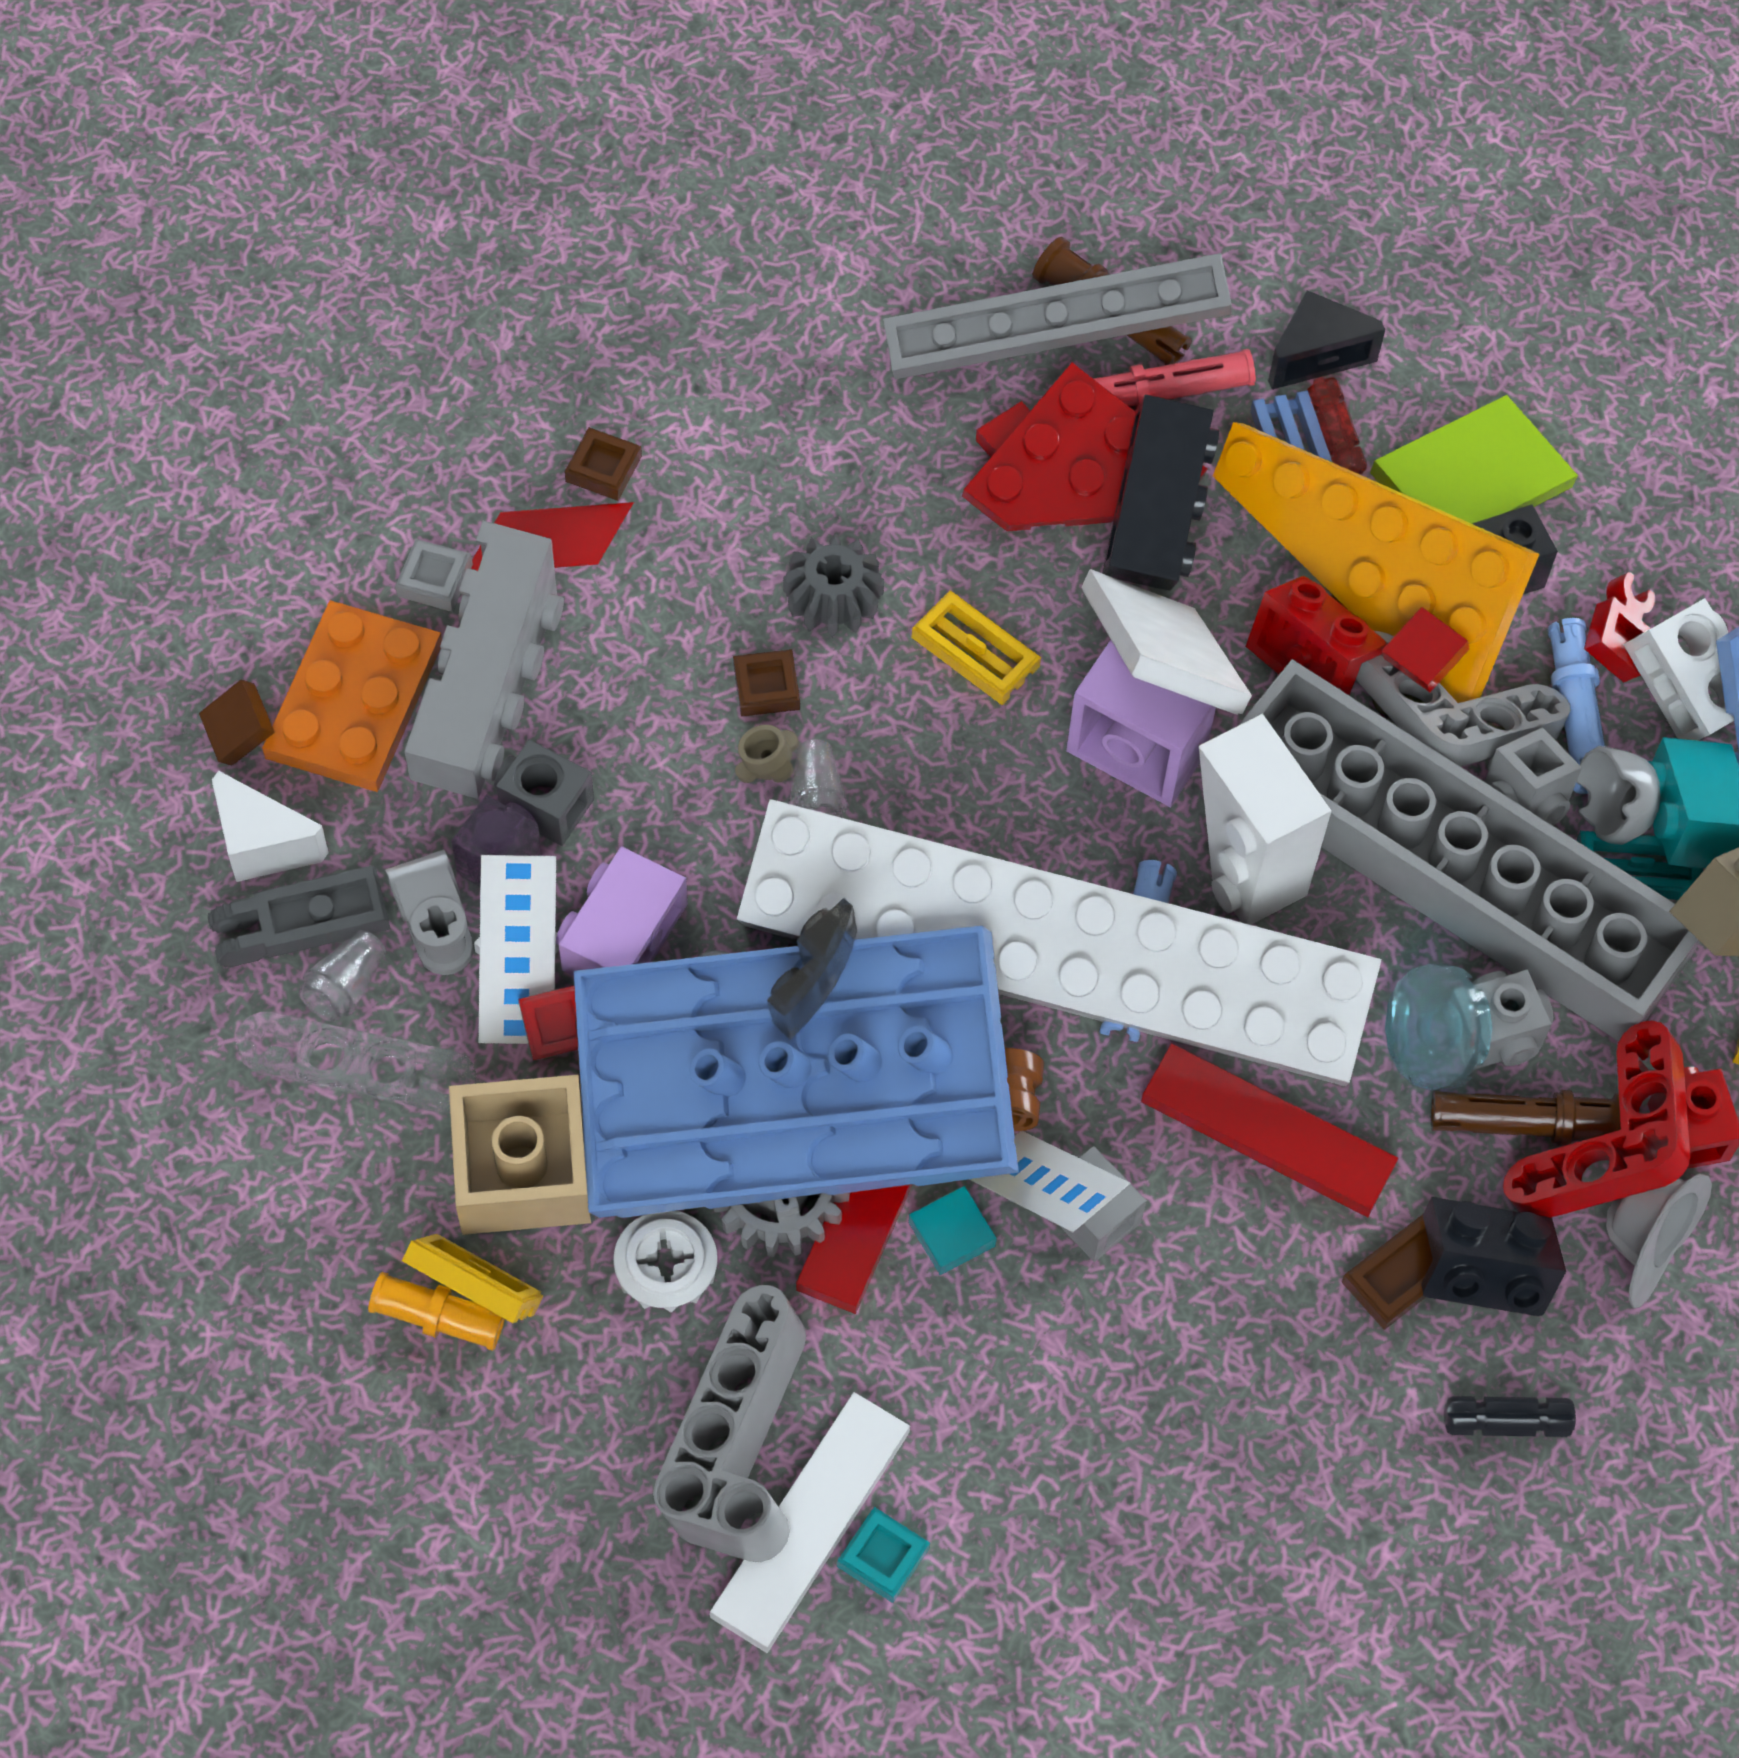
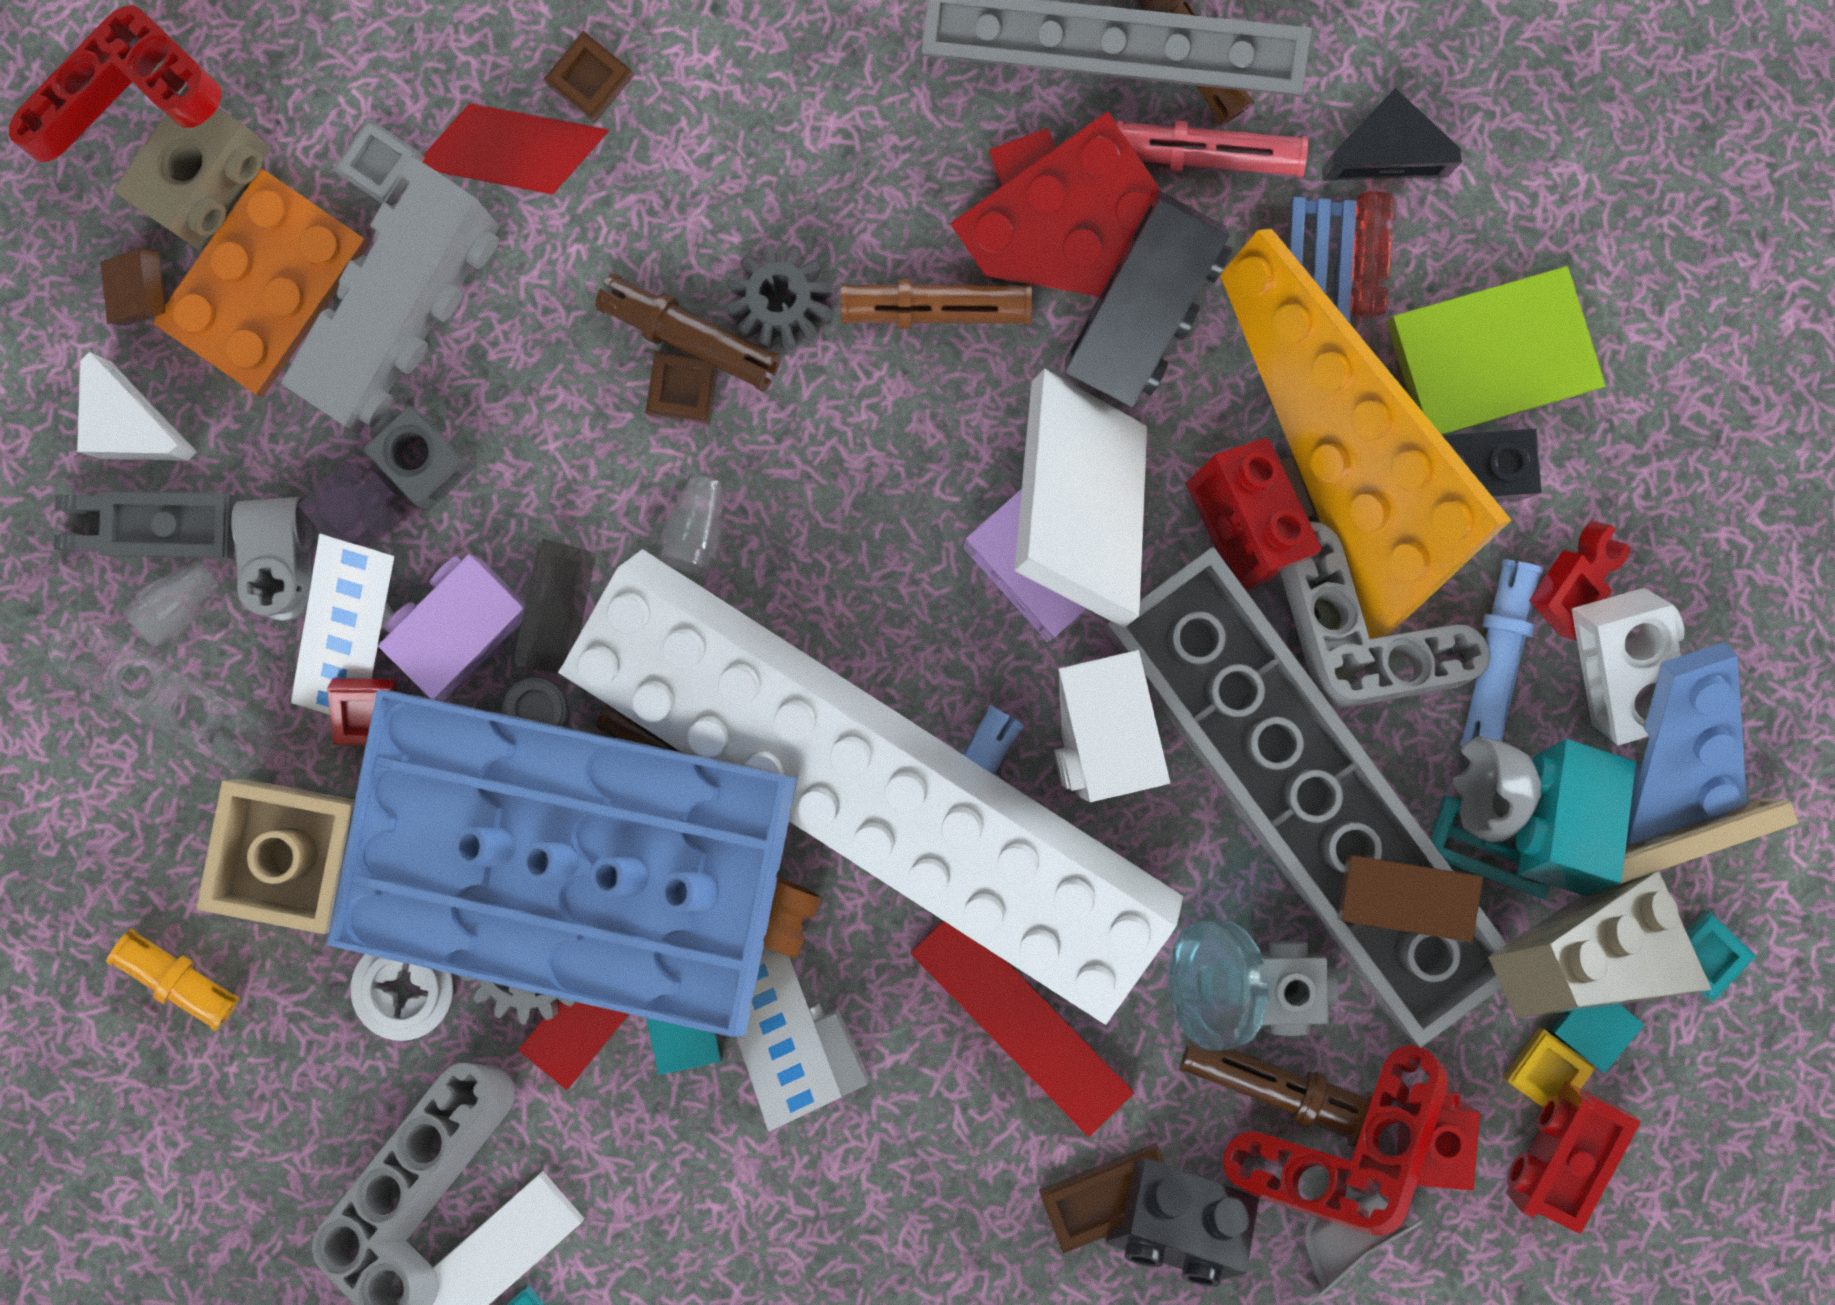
camera: 20 degrees right, 25 degrees up
(175, 538) = (62, 111): none -> red beam
(270, 611) = (164, 171): none -> dark tan brick
(473, 1277) = (205, 966): yellow tile -> none
(709, 888) = (554, 605): none -> clear smoke slope
(748, 629) = (665, 321): none -> reddish brown pin
(766, 754) = (638, 471): dark tan plate -> none
(824, 952) = (611, 770): clear smoke slope -> none
(907, 574) = (935, 304): none -> dark orange pin
(965, 665) = (936, 451): yellow tile -> none
(1425, 649) = (1356, 576): red tile -> none
(1535, 774) = (1413, 741): light grey brick -> none
(1579, 887) = (1410, 898): none -> reddish brown tile

